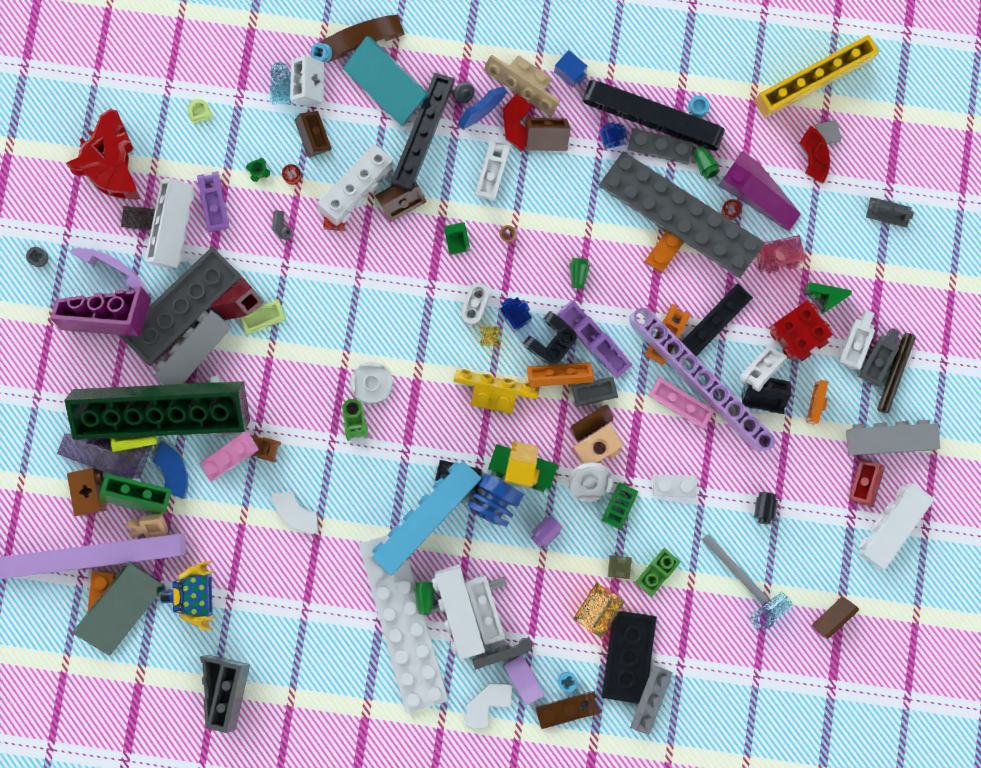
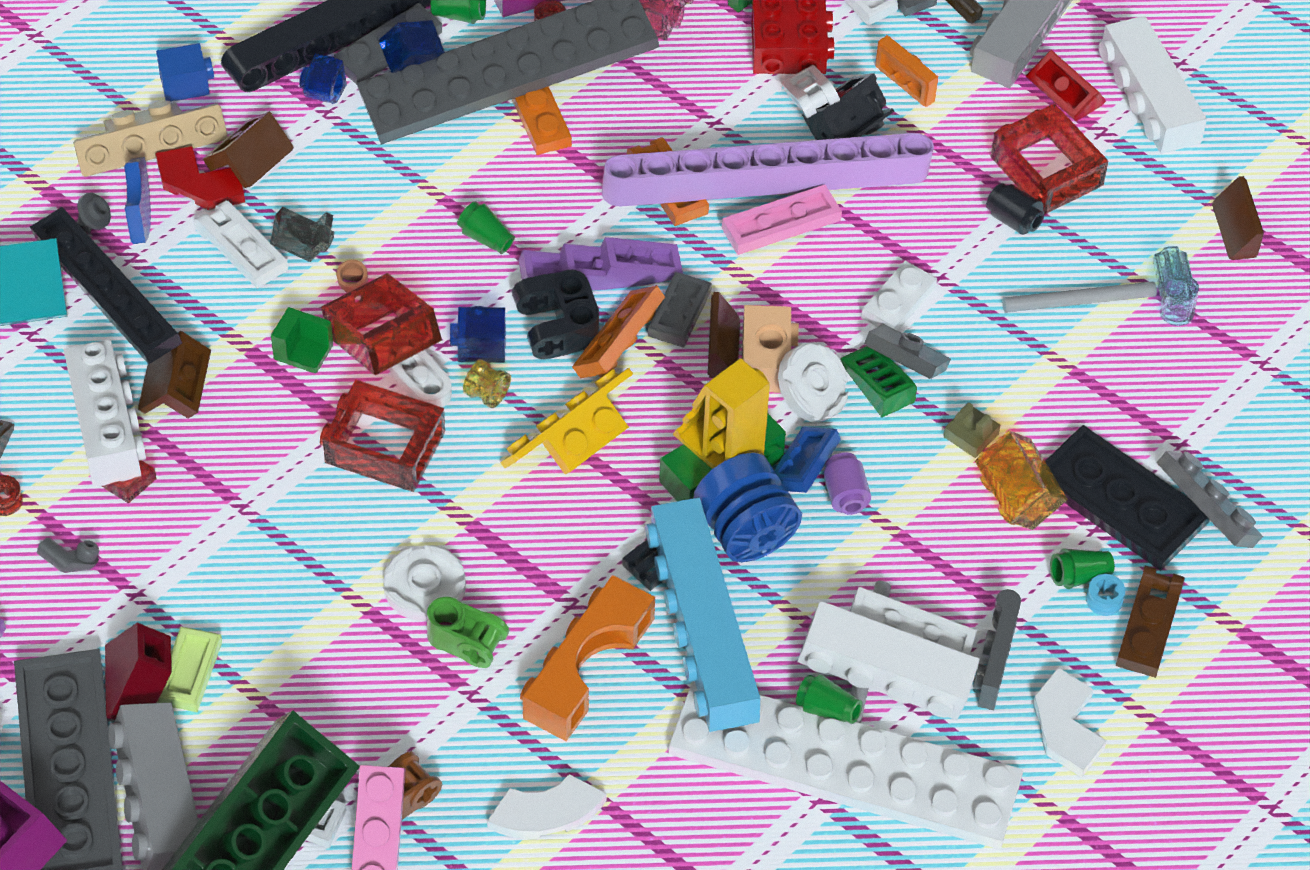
camera: 55 degrees left, 30 degrees down
(349, 481) = (614, 619): none -> orange arch
(436, 332) = (367, 399): none -> clear red window
(478, 285) = (390, 342): none -> clear red window
(515, 194) = (301, 235): none -> clear smoke bracket
(523, 679) = (1055, 644): lavender slope -> none
(547, 504) = (806, 457): none -> blue plate
(573, 663) = (1078, 567): none -> green cone
(642, 511) = (907, 350): none -> dark grey plate
(657, 163) = (410, 44): none -> clear blue brick
(657, 572) = (1014, 388): bright green slope -> none
(717, 319) = (690, 106): black tile -> none
(800, 525) = (1064, 186): none -> clear red window

